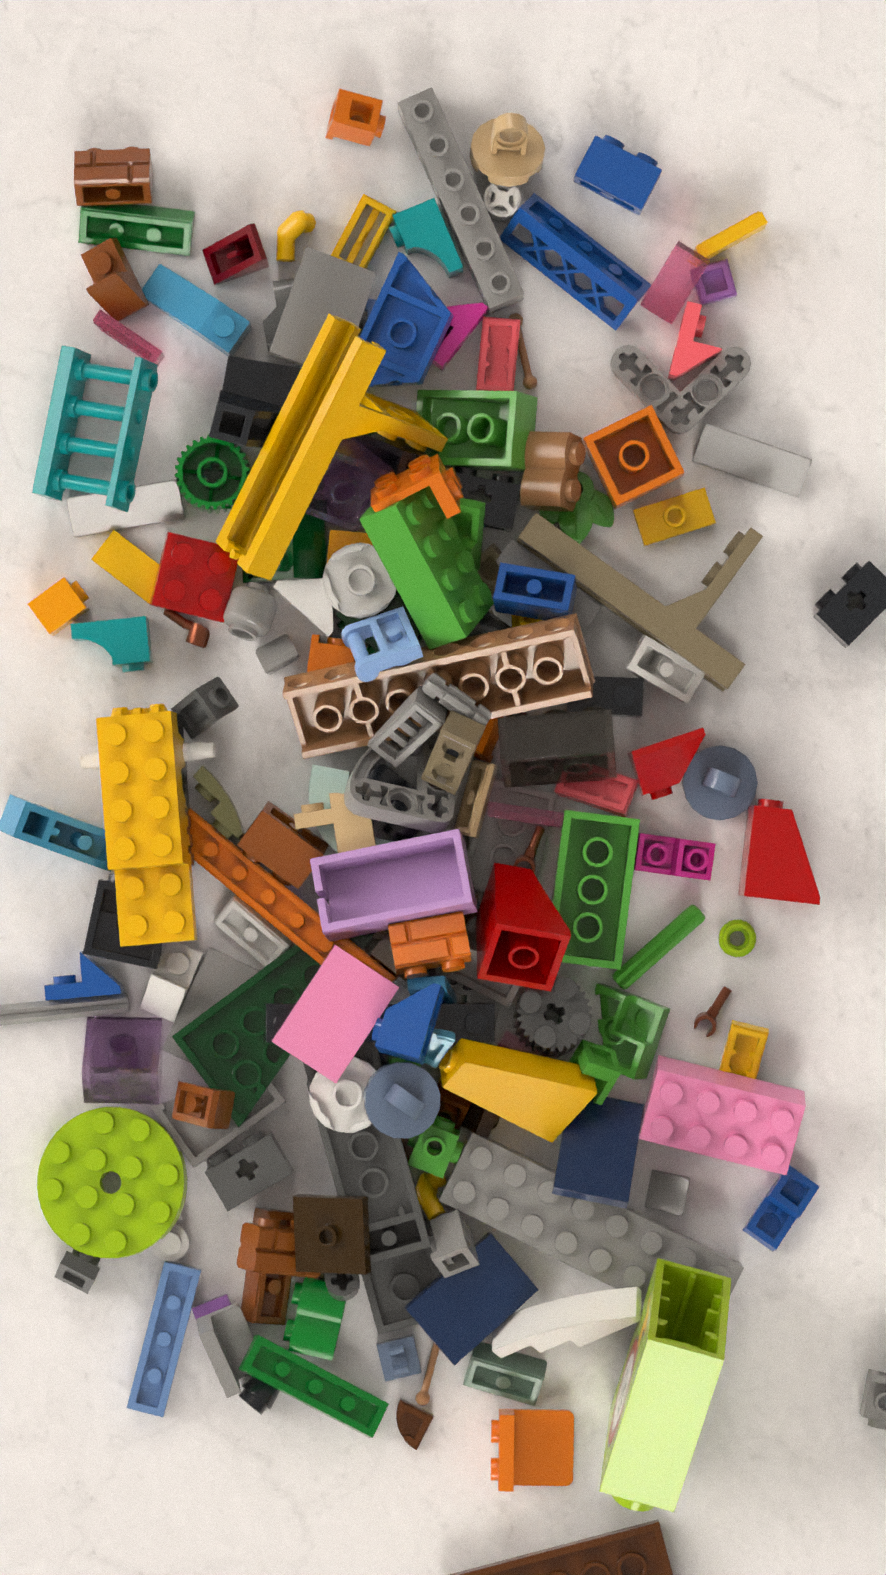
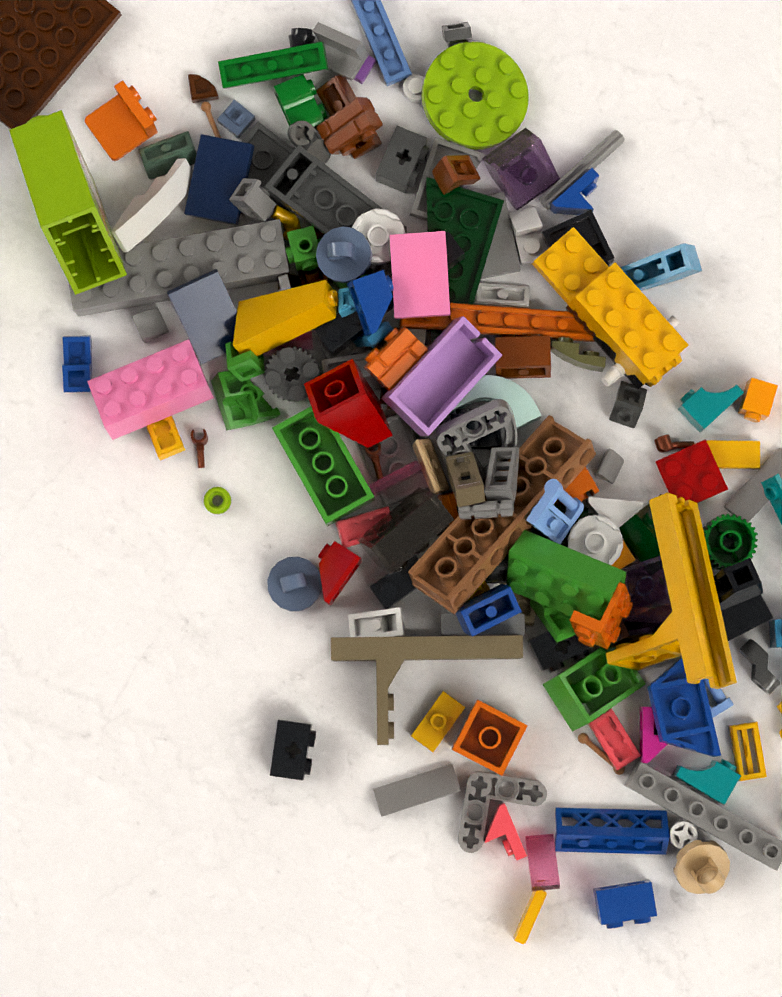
camera: 150 degrees right, 5 degrees down
(250, 611) = (644, 478): light grey head -> none
(319, 288) = (748, 699): light grey tile -> none
(331, 1234) = (327, 151): dark brown plate -> none
(351, 830) = (490, 389): tan brick -> none
(552, 471) = (531, 692): medium nougat brick -> none
(589, 509) = (497, 680): bright green plate -> none
(658, 946) = (259, 462): bright green axle -> none
(674, 856) = (290, 520): dark pink slope -> none
(716, 283) = (517, 881): medium lavender tile -> none
(775, 856) = (229, 560): red slope -> none

